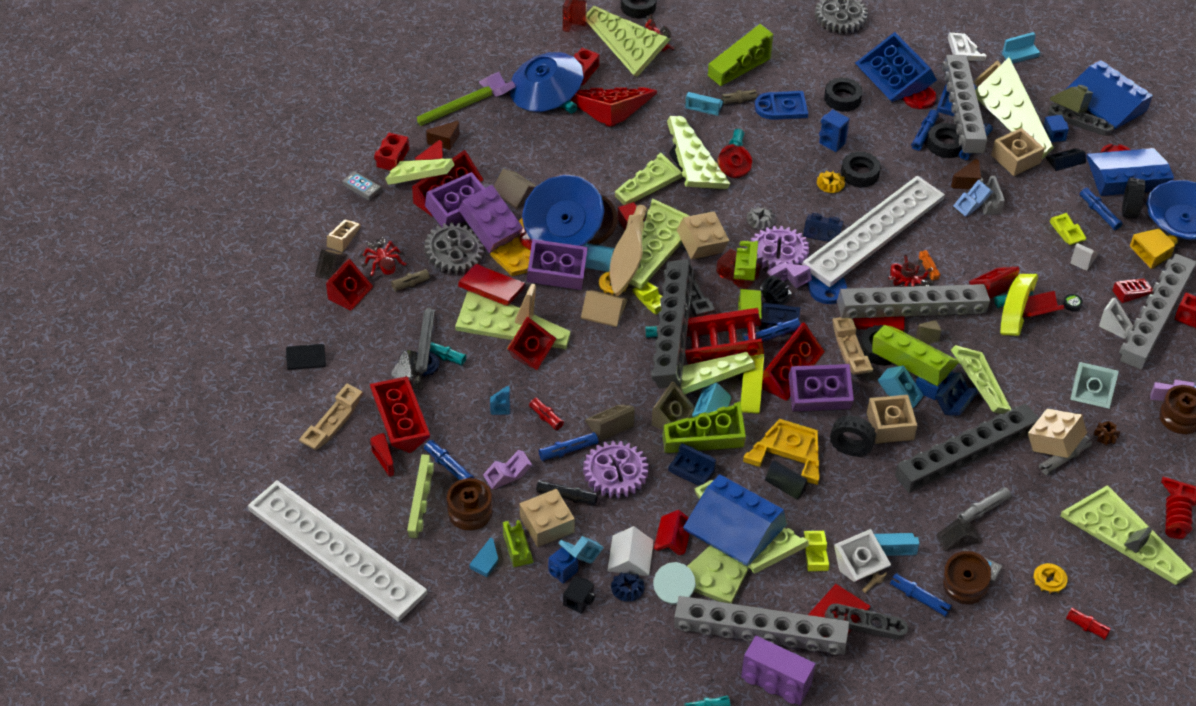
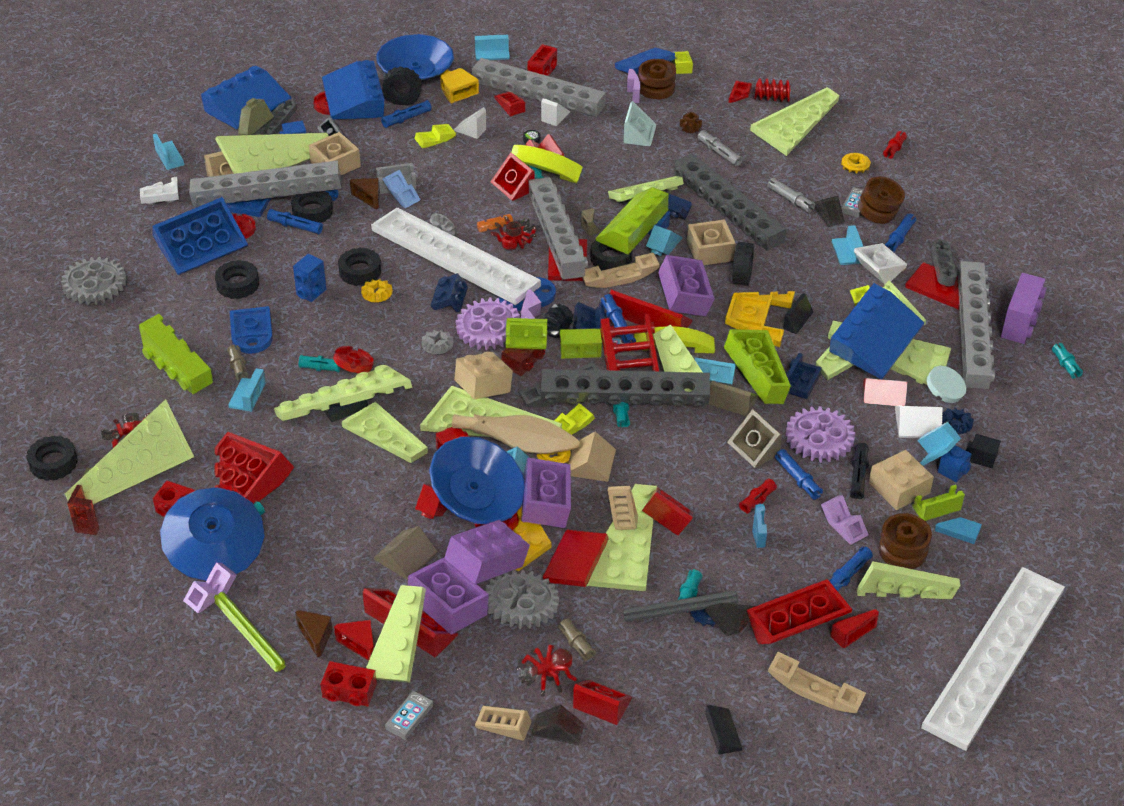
camera: 95 degrees left, 5 degrees down
(915, 222) = (443, 223): none -> light grey gear
(1057, 433) = (706, 142): tan brick -> none
(1138, 539) = (809, 106): dark grey slope -> none

